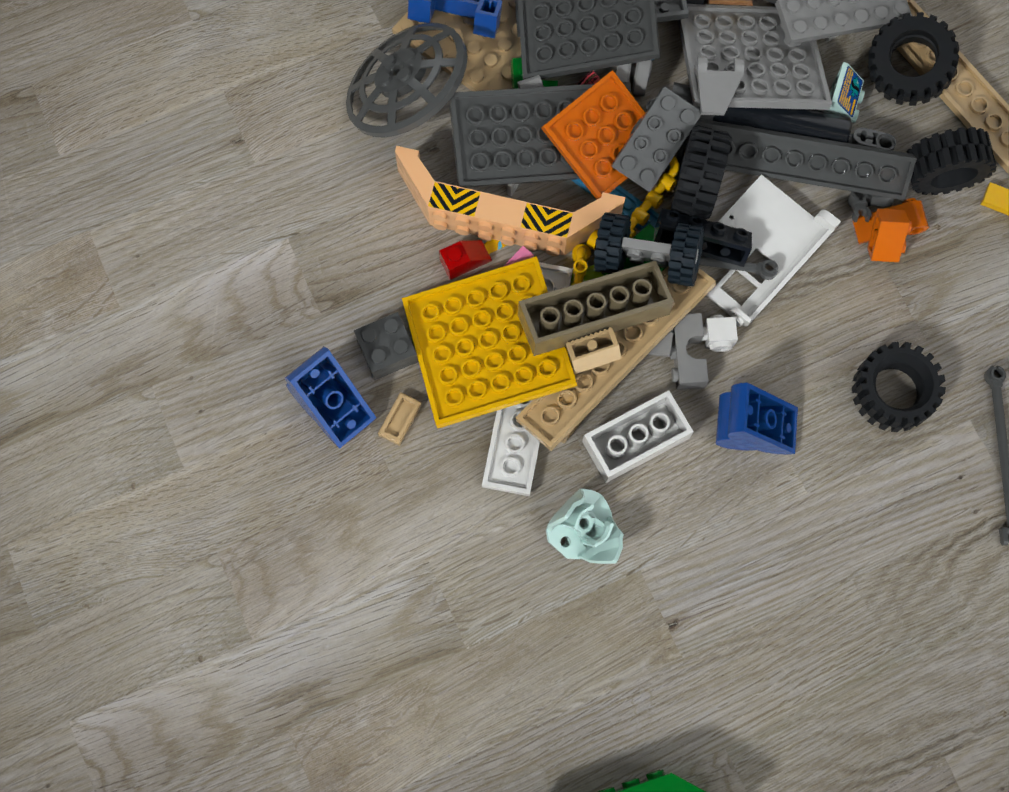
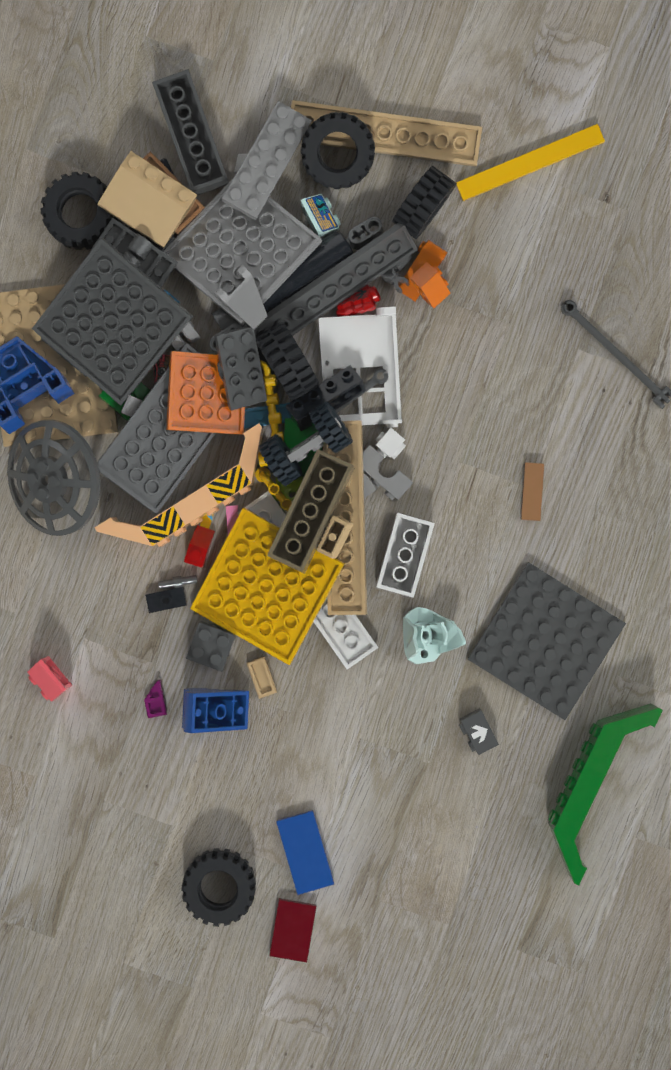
camera: 45 degrees left, 15 degrees up
(135, 542) = (218, 912): none -> black tyre
(182, 673) = (293, 930): none -> dark red tile
(222, 235) = (48, 678): none -> coral slope
(270, 612) = (305, 852): none -> blue tile
(287, 347) = (155, 701): none -> magenta tile
(389, 273) = (166, 600): none -> black plate
(415, 268) = (177, 582): none -> dark grey bar
(543, 664) = (479, 732): none -> dark grey brick
(689, 648) = (546, 641): none -> dark grey plate
(756, 421) = (464, 479): blue brick -> none
(808, 499) = (532, 491): none -> medium nougat tile
(810, 195) = (359, 302): none -> red rock
(913, 364) = (543, 363): black tyre -> none

